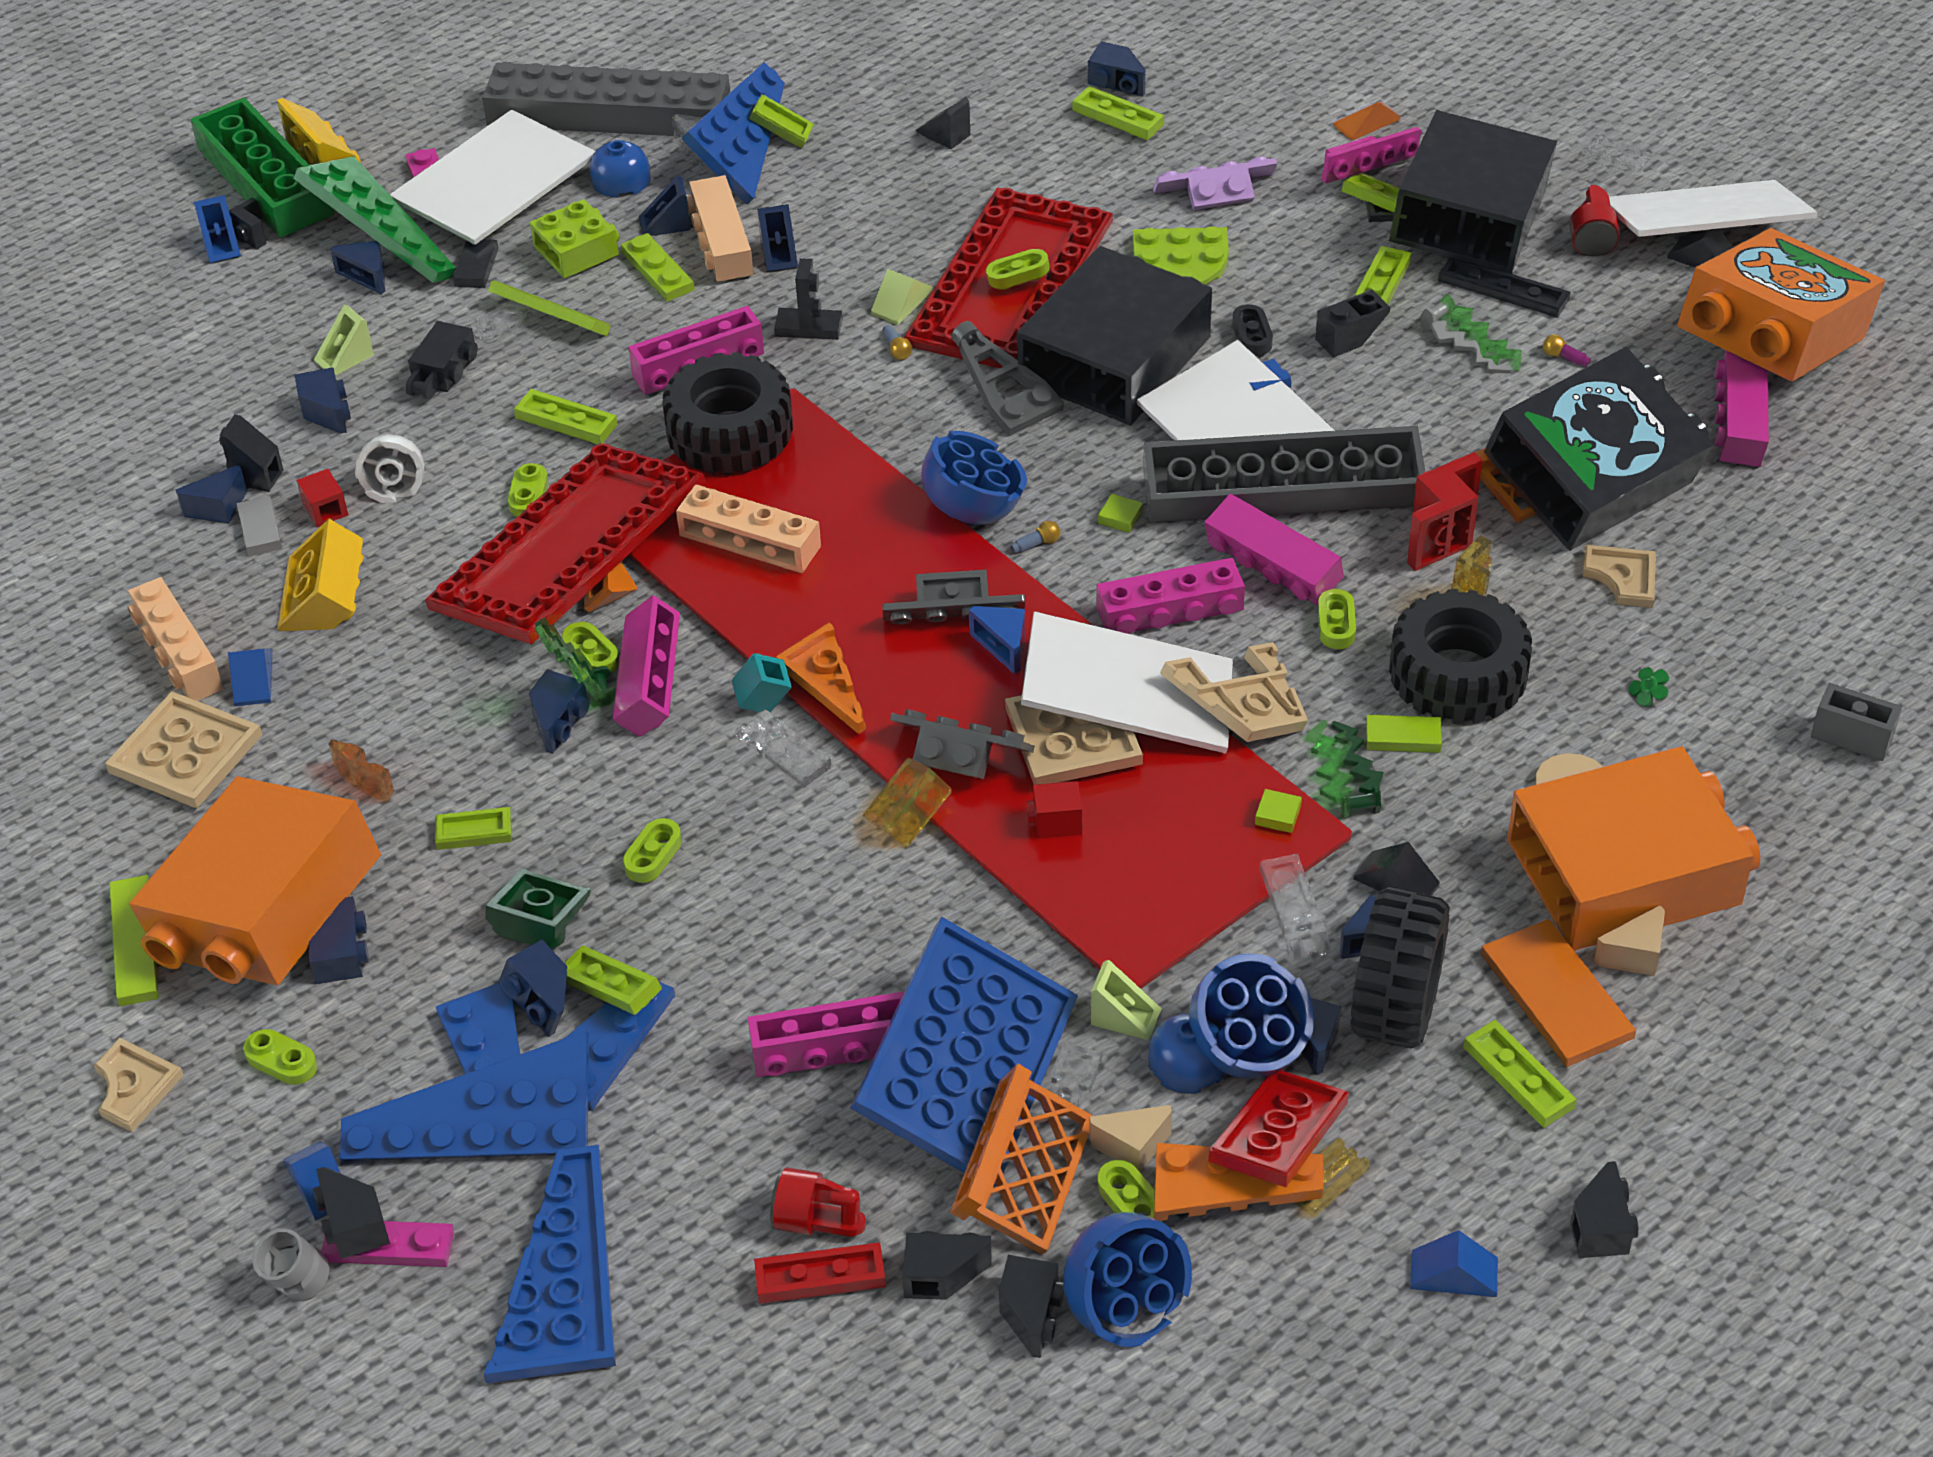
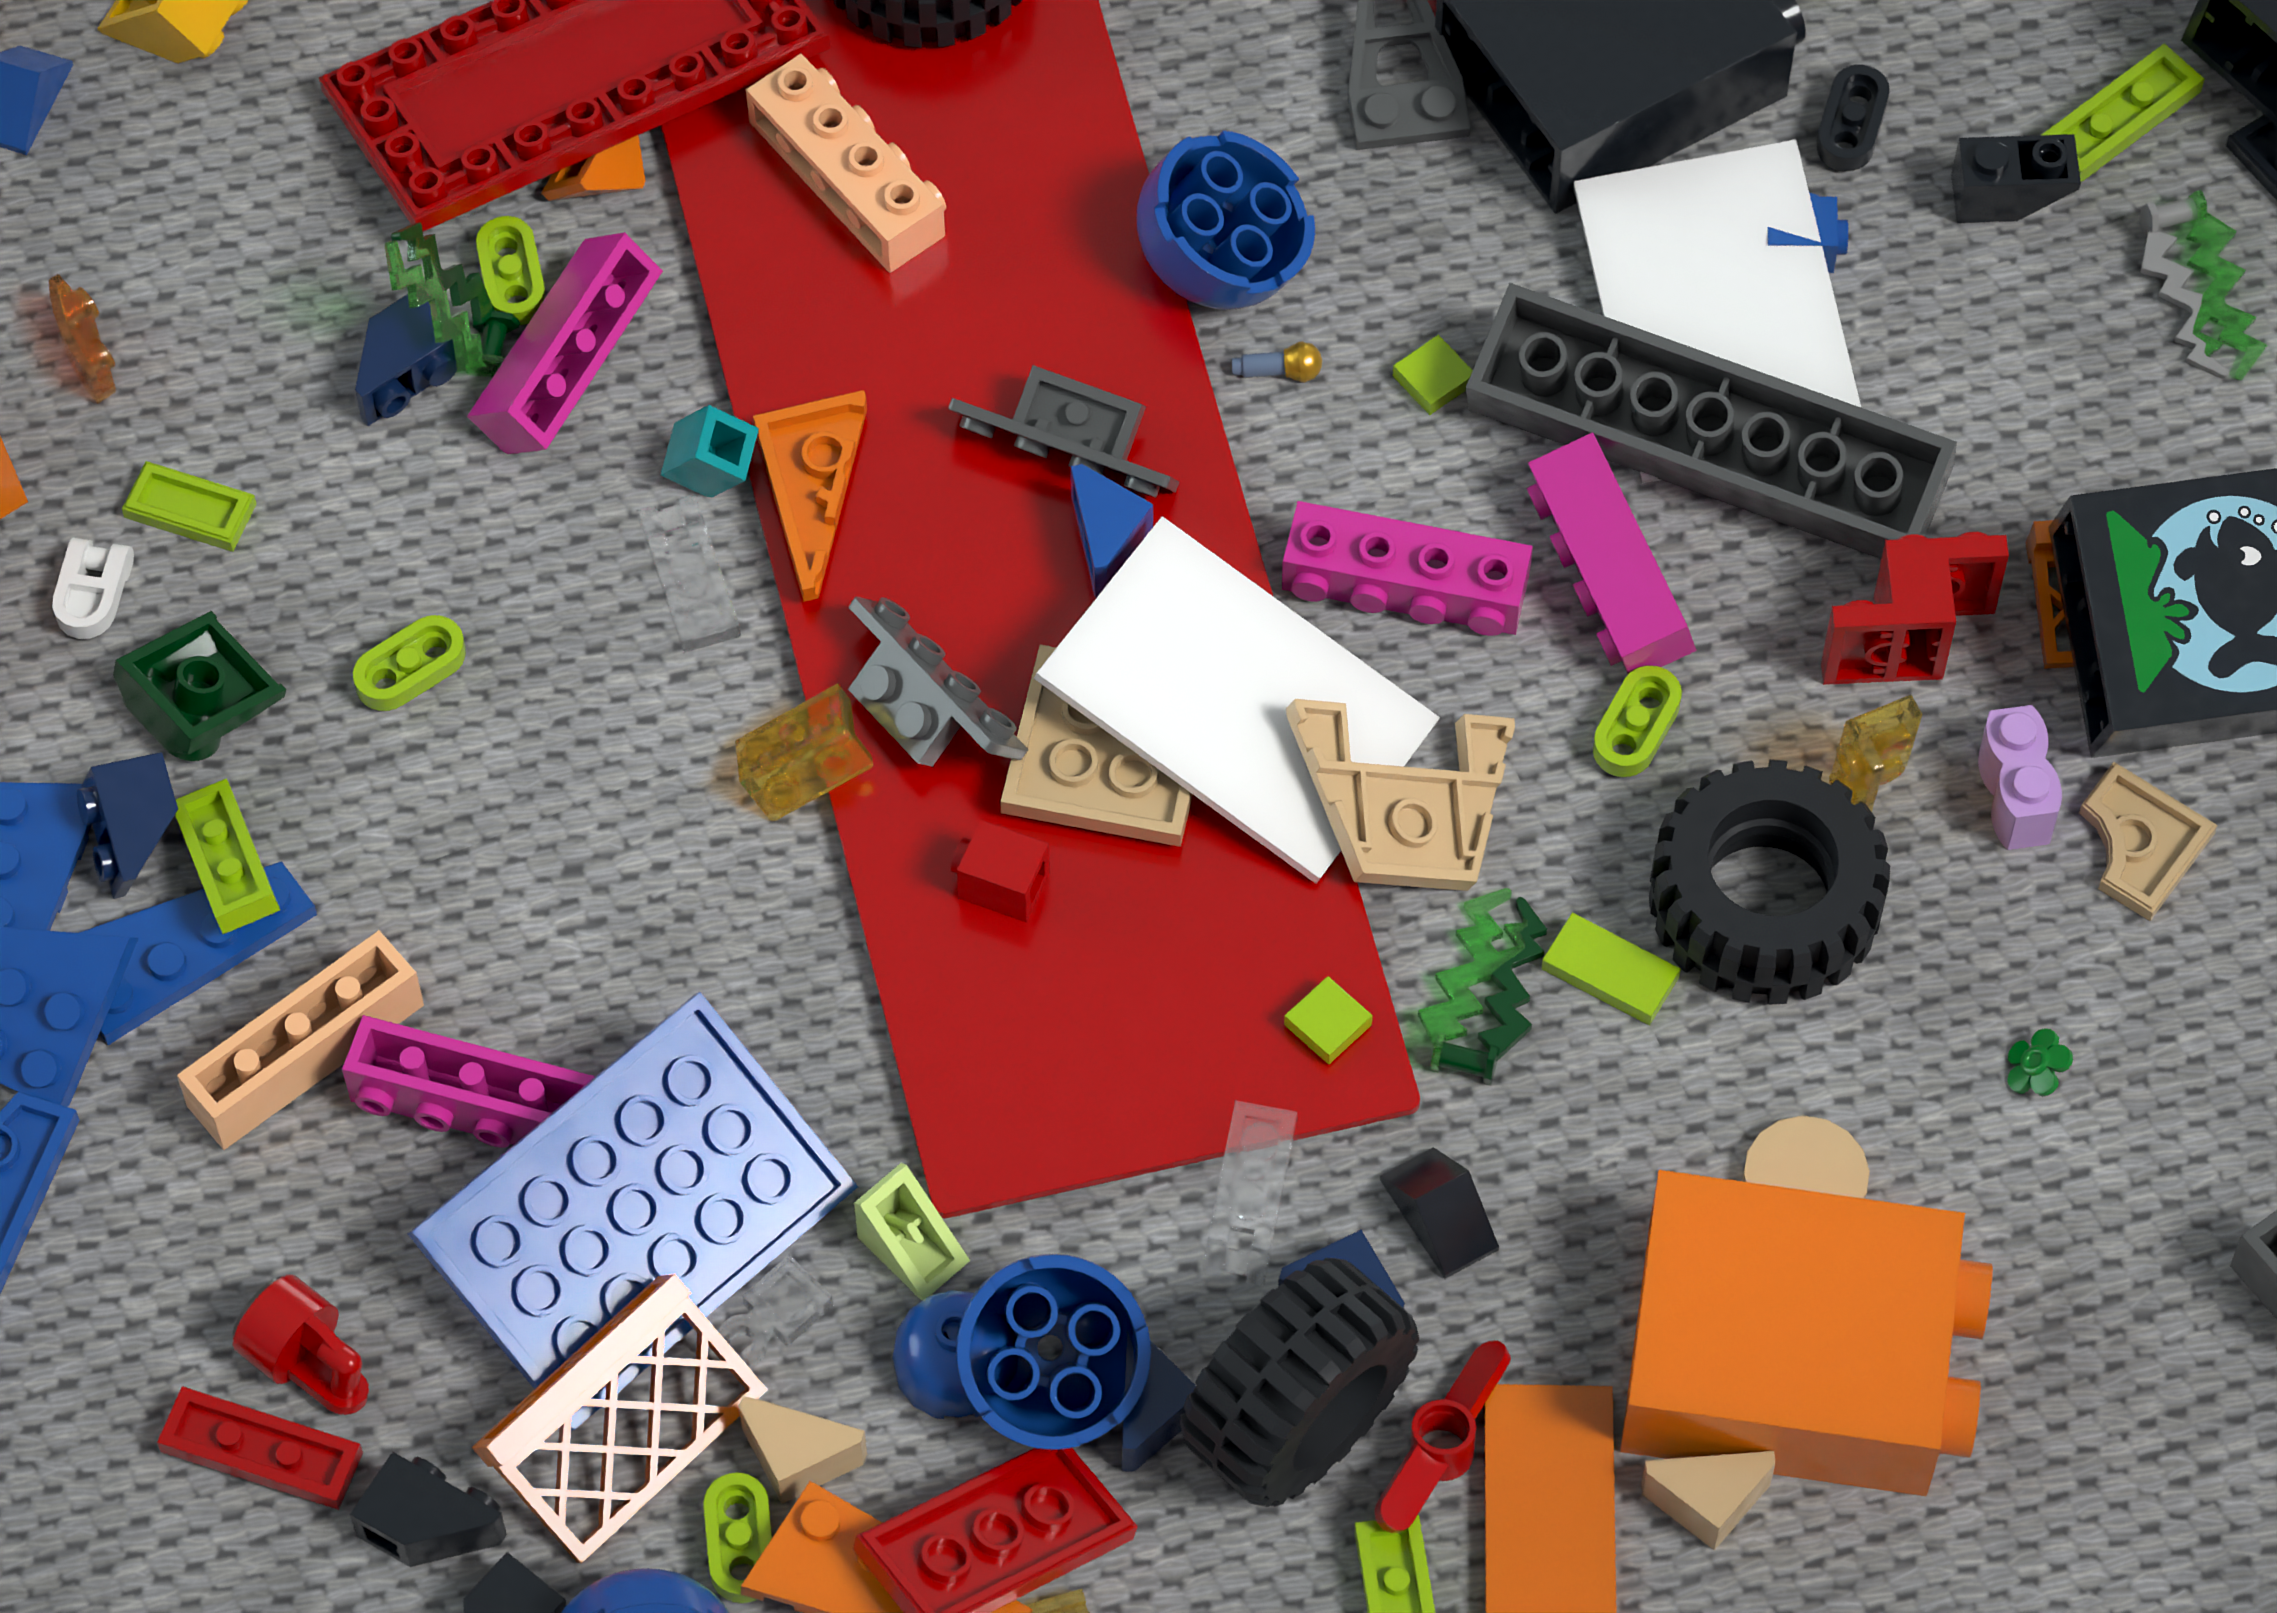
camera: 25 degrees right, 15 degrees up
(440, 888) = (89, 603): none -> white plate
(711, 1053) = (298, 1040): none -> light nougat brick
(1480, 977) = (1455, 1413): none -> red piece
(1547, 565) = (2019, 777): none -> lavender brick

